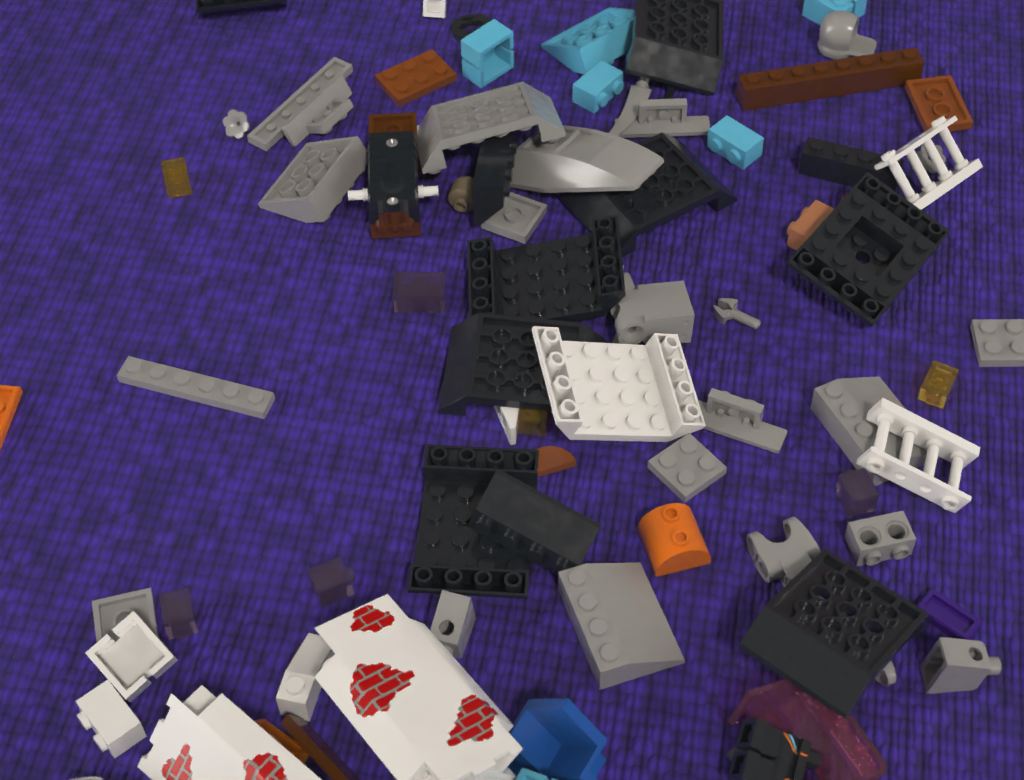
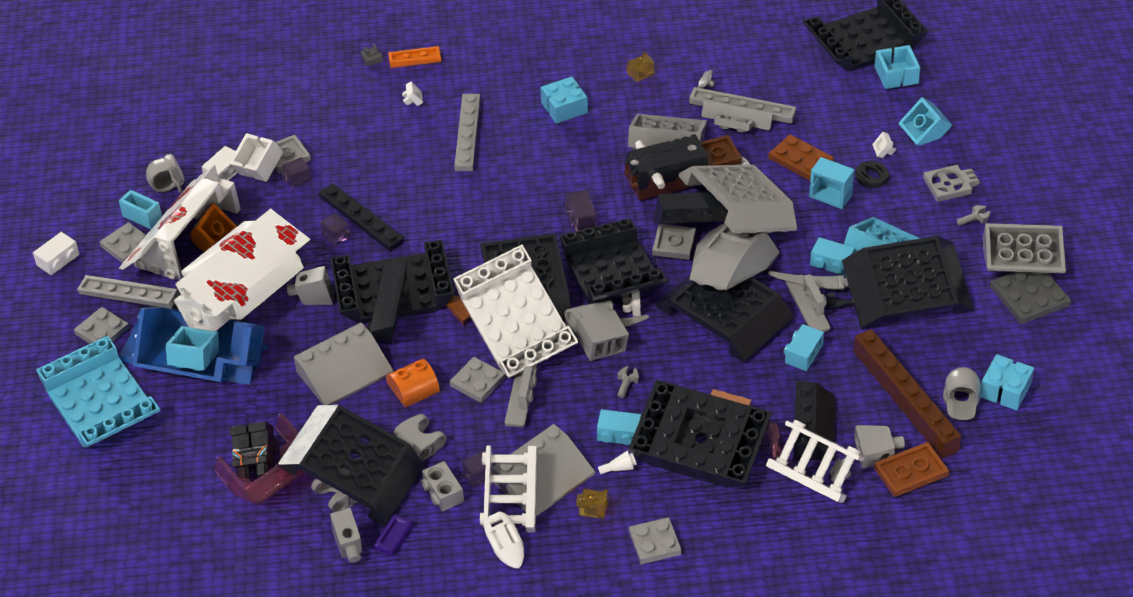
camera: 75 degrees right, 5 degrees down
(84, 431) = (412, 94): none -> white tile
(194, 257) = (564, 100): none -> medium azure piece
(309, 548) = (361, 217): none -> black plate
(819, 334) = (617, 426): none -> medium azure brick
(876, 341) = (621, 463): none -> white cone
(899, 121) = (875, 443): none -> light grey torso
(988, 485) = (505, 539): none -> white piece

